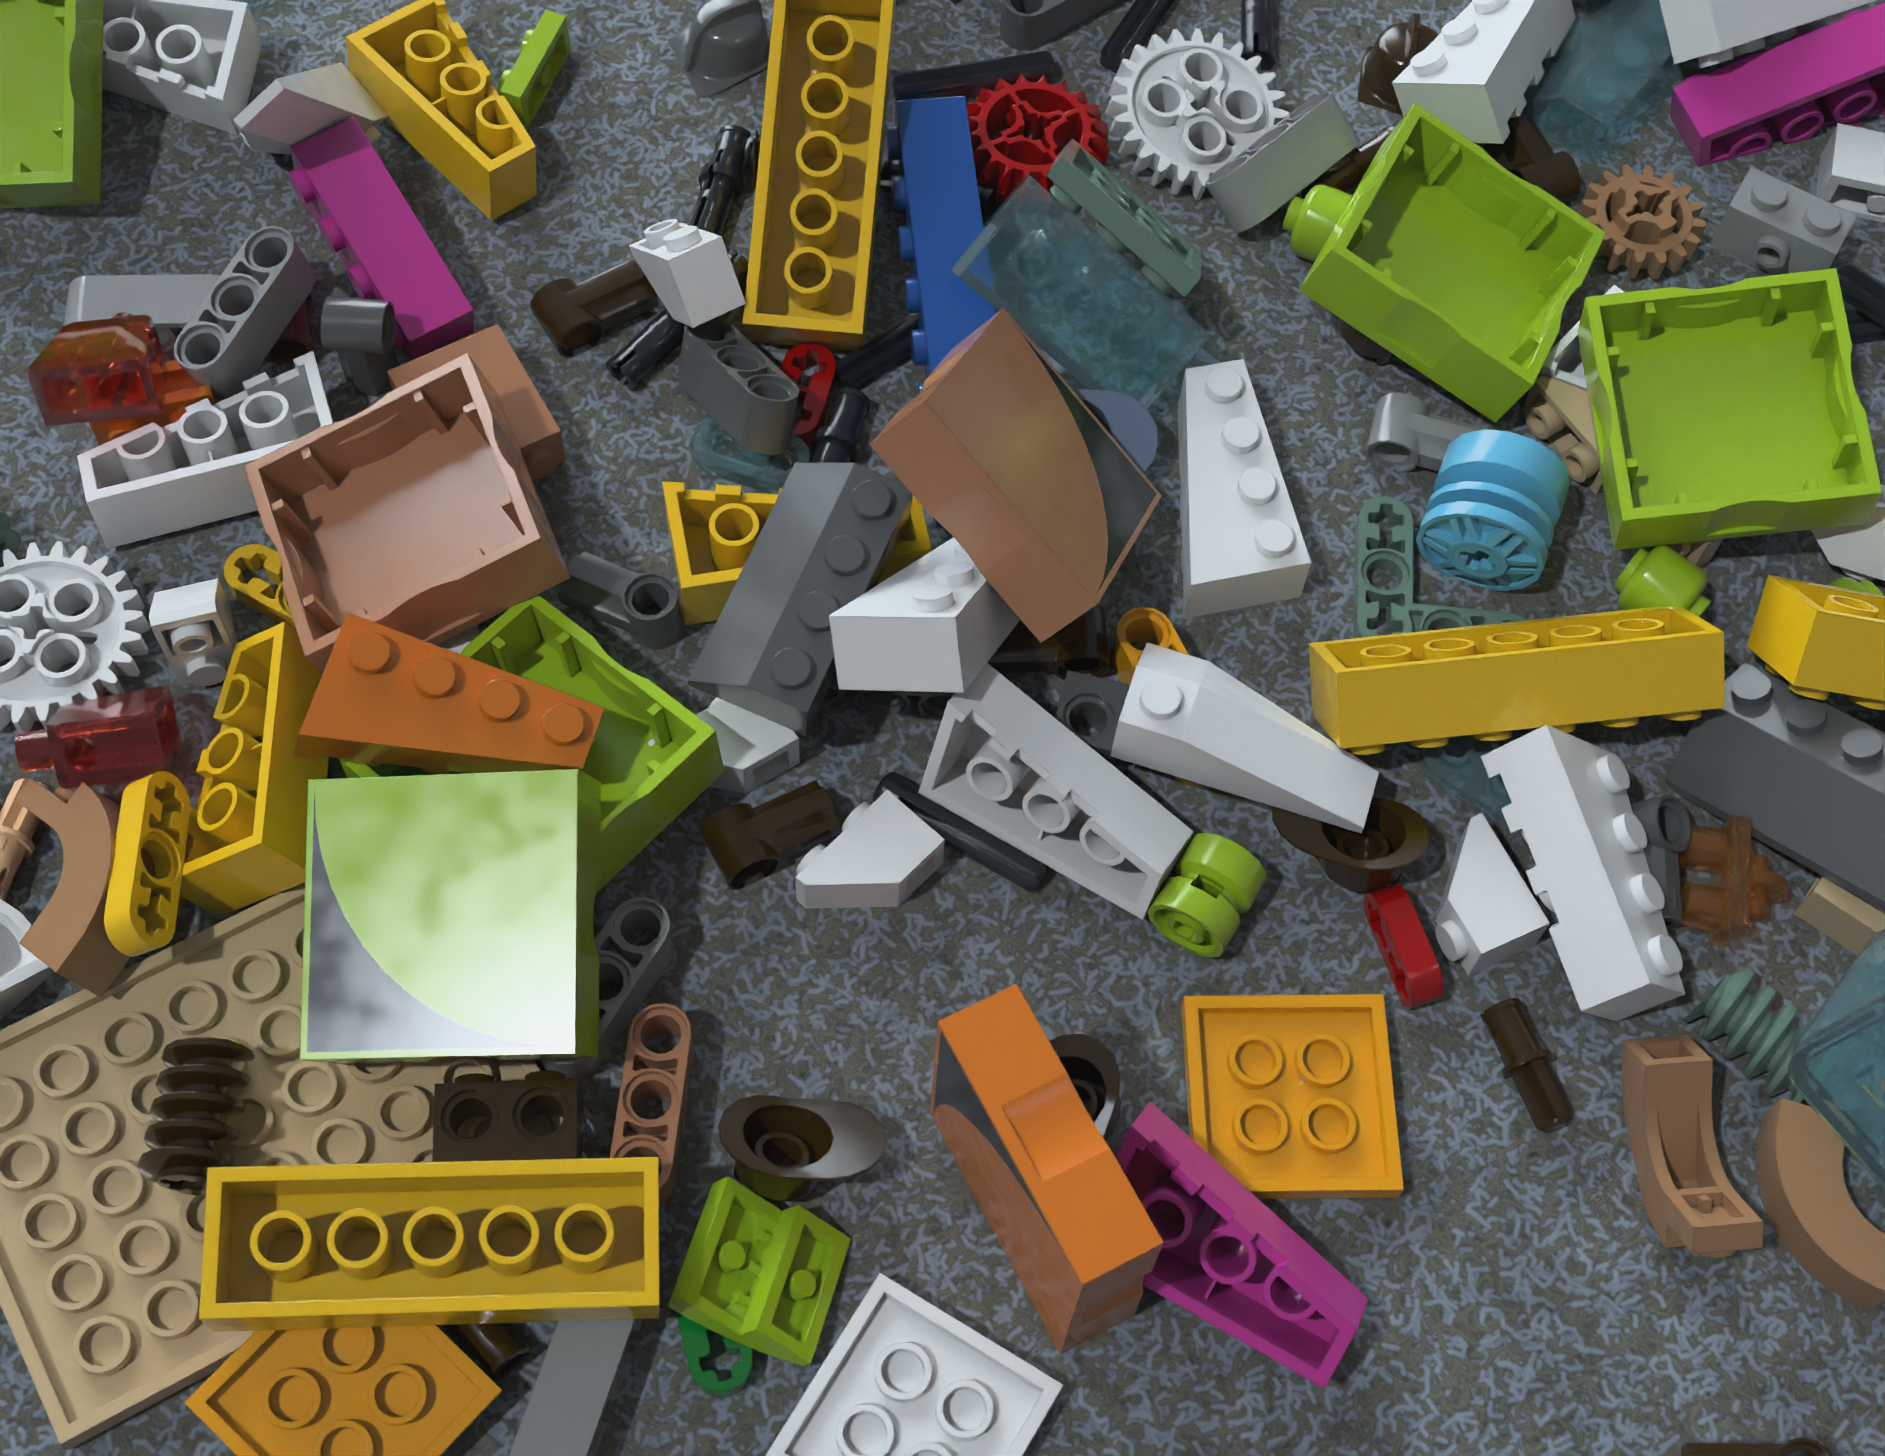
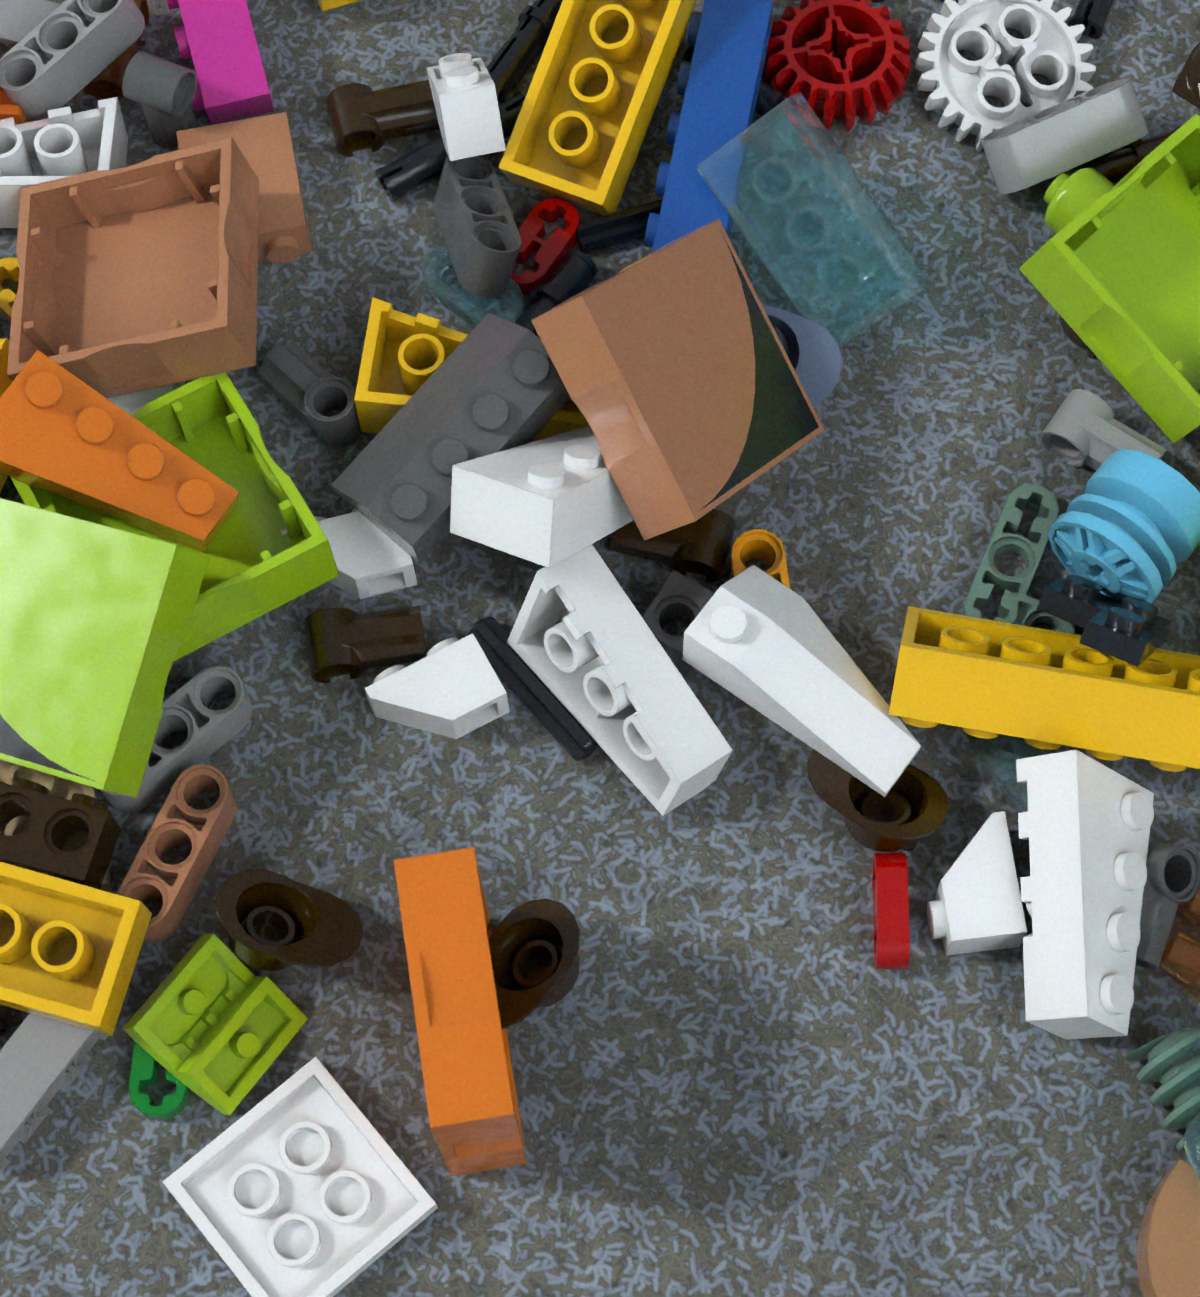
camera: 25 degrees right, 5 degrees up
(1125, 219) = (879, 156): sand green plate -> none
(1210, 890) = (743, 797): lime wheel -> none
(1234, 504) = (889, 460): white wedge -> none
(1235, 1256) = (611, 1133): dark pink wedge -> none
(1294, 1093) = (734, 1015): light orange plate -> none
(1525, 604) = (1115, 627): none -> black plate
(1527, 1064) = (964, 1053): dark brown axle -> none
(1676, 1149) = (1069, 1174): medium nougat arch -> none

